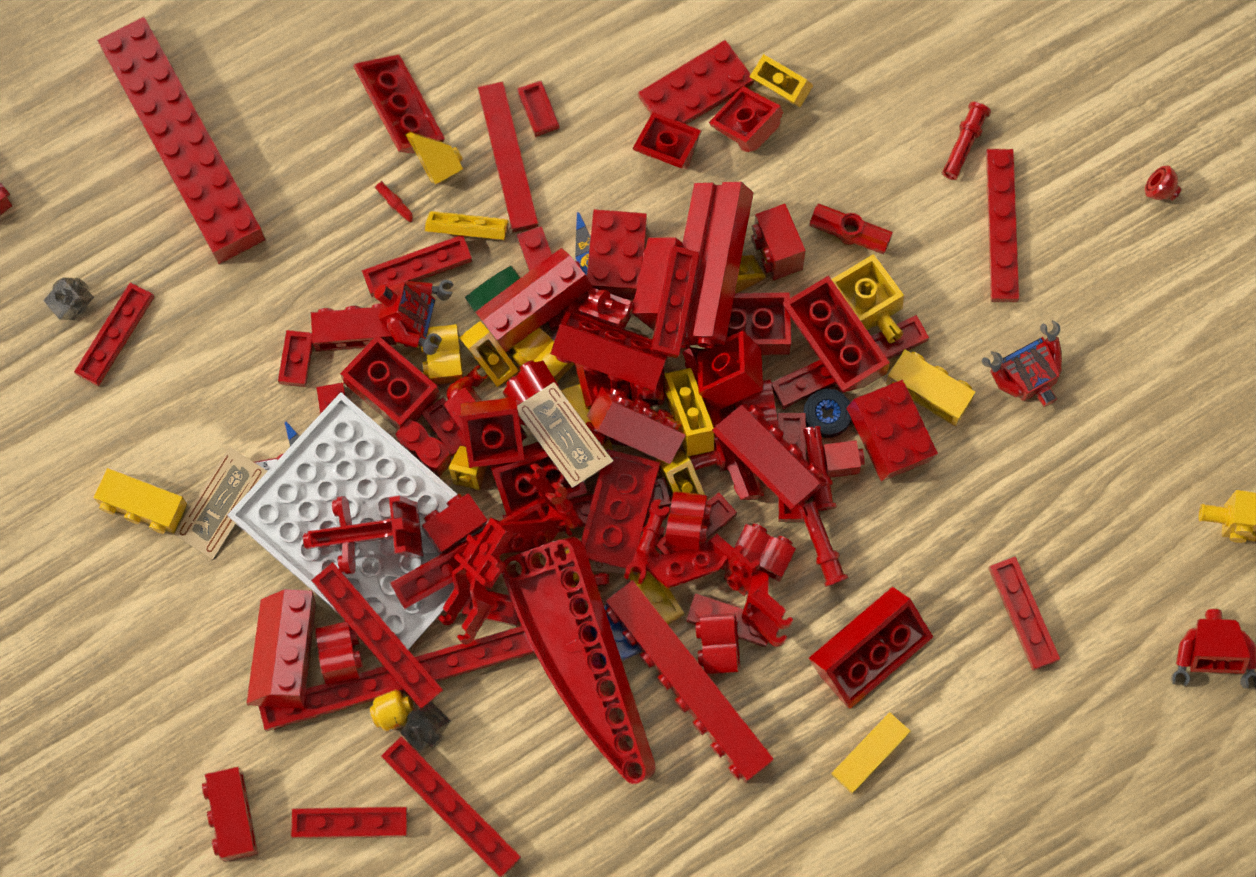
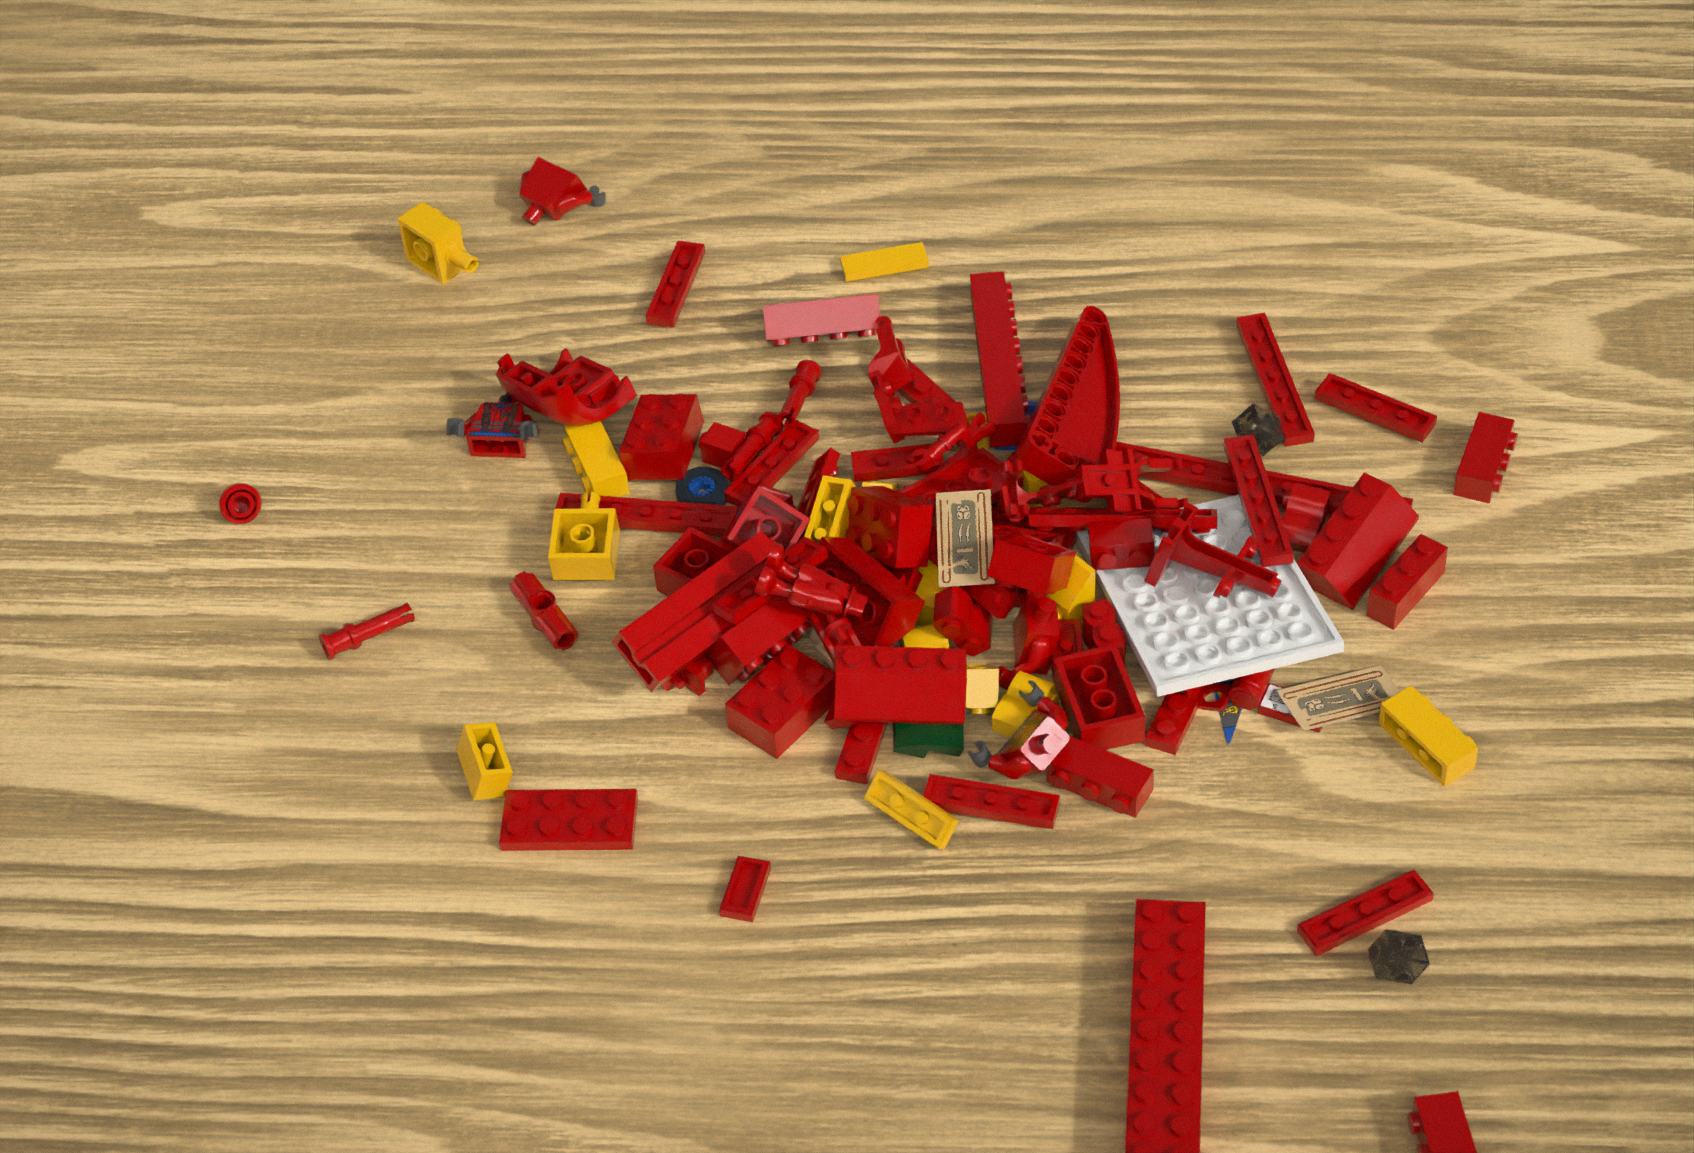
camera: 145 degrees left, 25 degrees down
(226, 638) = (1407, 581): none -> red brick
(295, 358) = (1179, 782): red plate -> none
(391, 710) = (1282, 456): yellow head -> none
(394, 201) = (968, 881): red piece -> none
(397, 100) = (889, 969): red slope -> none
(436, 157) = (892, 878): yellow slope -> none
(507, 157) = (814, 861): red tile -> none
(582, 243) = (806, 743): sticker -> none
(631, 299) = (811, 586): none -> red piece
(668, 141) = (649, 766): red slope -> none
(687, 520) = (894, 452): red brick -> none
(719, 643) = (948, 368): red brick -> none
(748, 119) = (548, 751): red slope -> none
(770, 455) = (790, 446): red slope -> none
(771, 552) = (853, 417): red brick -> none
(778, 242) = (619, 605): red brick -> none
(837, 335) = (643, 509): red slope -> none
(1002, 225) = (404, 554): red plate -> none
(1003, 416) = (570, 393): none -> red piece

